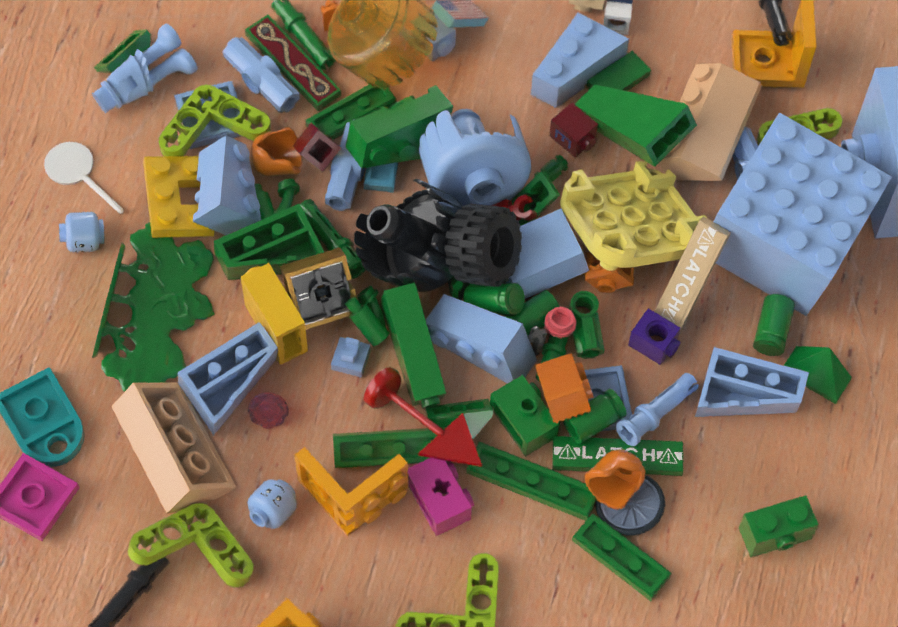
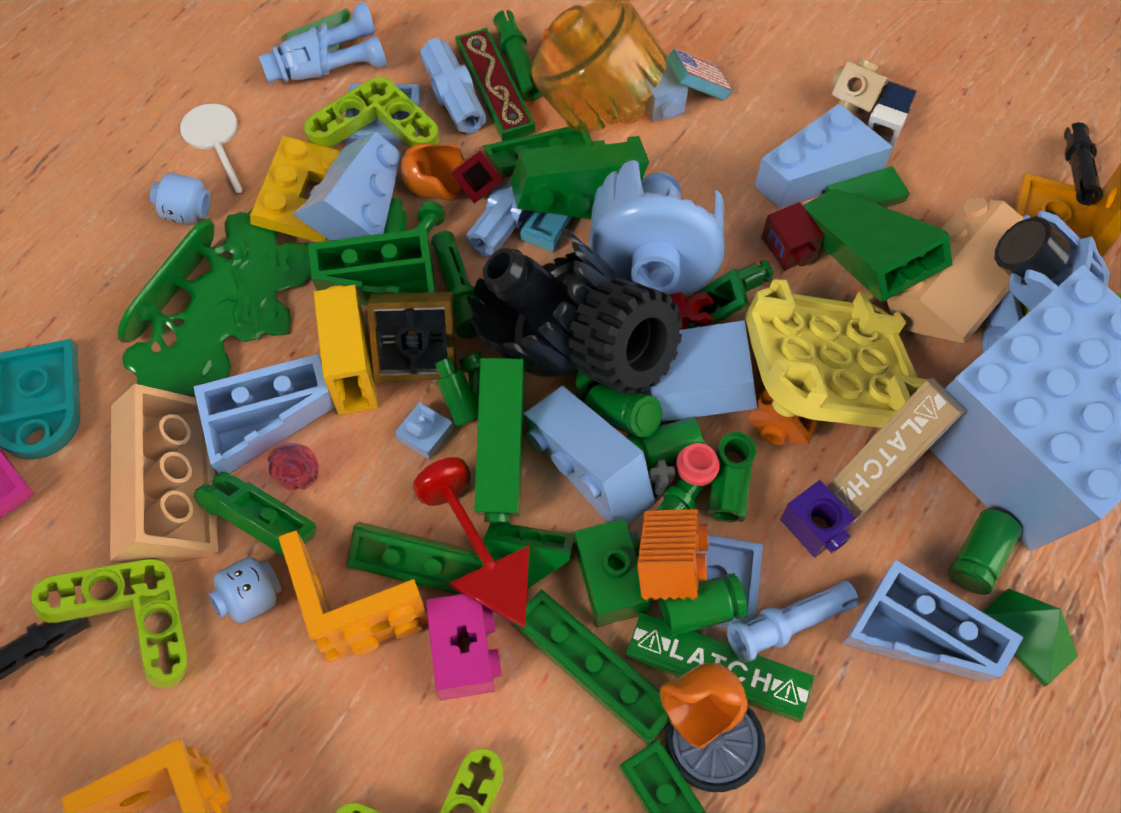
camera: 20 degrees right, 0 degrees up
(252, 450) = (252, 510): none -> green hinge
(760, 97) = (1042, 255): none -> piece

